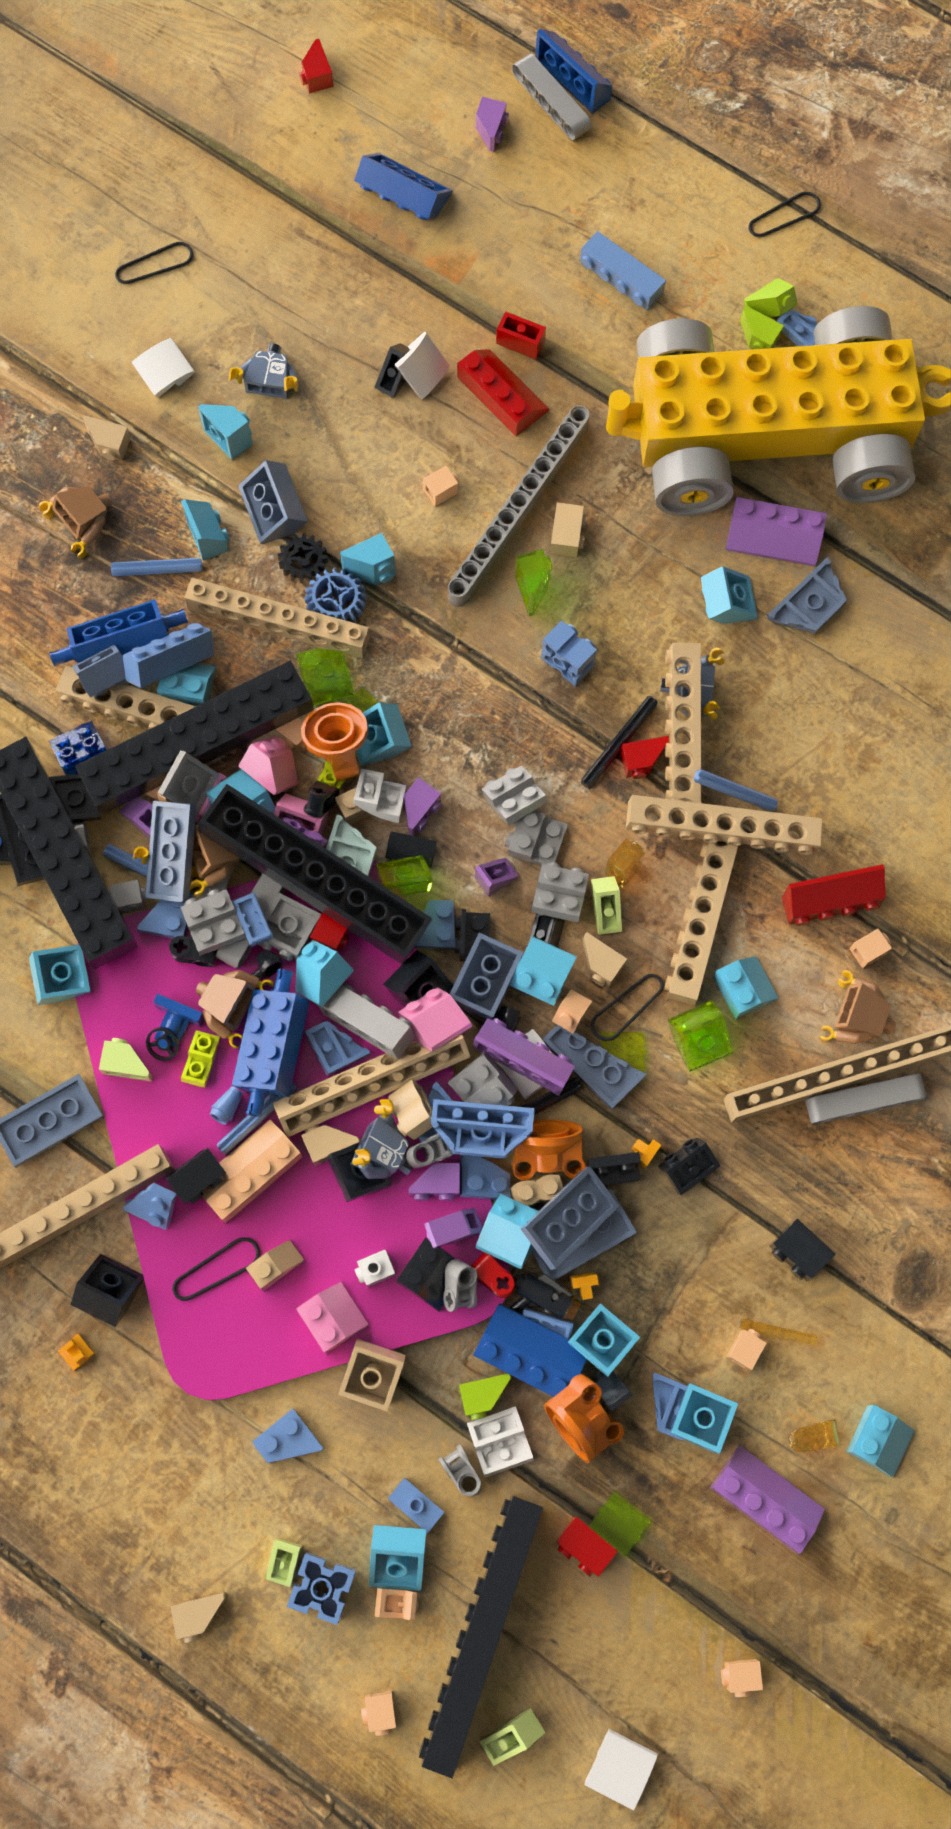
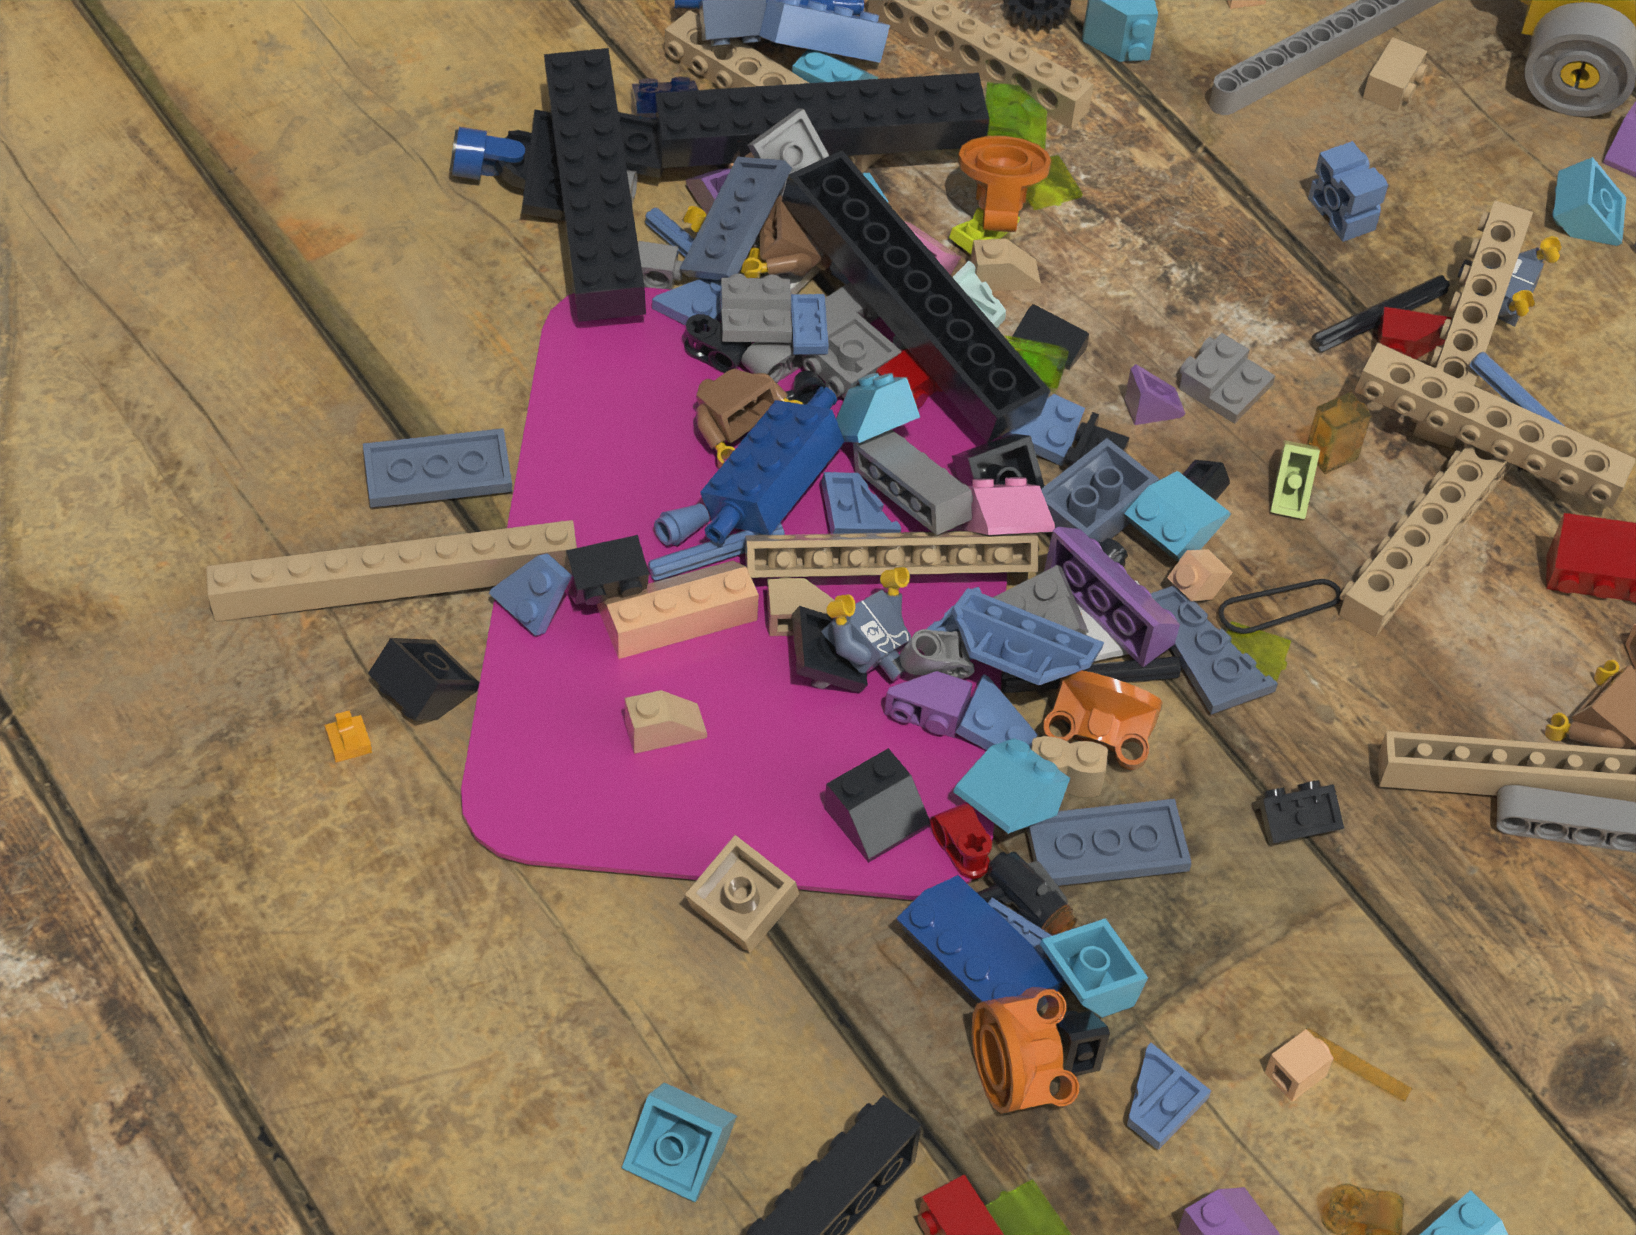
camera: 20 degrees right, 20 degrees down
(59, 974) = (528, 314): medium azure slope -> none
(122, 1061) = (567, 430): yellowish green slope -> none
(172, 1026) = (663, 408): blue piece -> none
(195, 1616) = (363, 1104): tan slope -> none
(200, 1059) = (671, 464): neon yellow slope -> none
(209, 1259) = (572, 691): black piece -> none
(271, 764) = (905, 180): bright pink slope -> none
(283, 1562) = (516, 1082): yellowish green slope -> none
(287, 1439) = (586, 942): medium blue wing -> none
(292, 735) = (945, 173): light nougat brick -> none
(306, 1595) = (555, 1132): medium blue brick -> none
(321, 799) = (955, 235): black piece -> none
(332, 1317) = (713, 807): bright pink slope -> none
(351, 590) = (1068, 45): medium blue gear -> none
(374, 1269) = (801, 772): white brick -> none
(378, 796) = (1027, 257): white slope -> none
(385, 736) = (1062, 203): medium azure slope -> none
(396, 1603) = (652, 1197): light nougat bracket -> none
(411, 1109) = (930, 600): tan brick -> none
(416, 1505) = (734, 1088): medium blue plate -> none
(419, 804) = (1085, 291): medium lavender slope -> none
(453, 1228) = (932, 753): medium lavender slope -> none
(460, 1285) = (912, 831): light grey piece -> none
(460, 1470) = (818, 1064): light grey piece -> none
(482, 1395) = (891, 981): lime slope -> none
(500, 1442) = (890, 1055): white slope -> none
(514, 795) = (1214, 315): light grey plate -> none
(532, 577) = (1331, 102): clear neon green slope -> none
(560, 892) = (1236, 440): light grey plate -> none
(569, 1218) = (1102, 791): sand blue plate -> none
(584, 1283) = (1091, 897): light orange tile -> none
(602, 961) = (1266, 538): tan slope -> none
(616, 1168) = (1188, 774): black bracket -> none
(645, 1151) = (1242, 774): light orange tile -> none
(701, 1035) = (1373, 667): clear neon green slope -> none
(704, 1418) = (1204, 1122): medium azure slope -> none
(745, 986) = (1455, 631): medium azure slope -> none
(801, 1250) = (1429, 962): black slope -> none

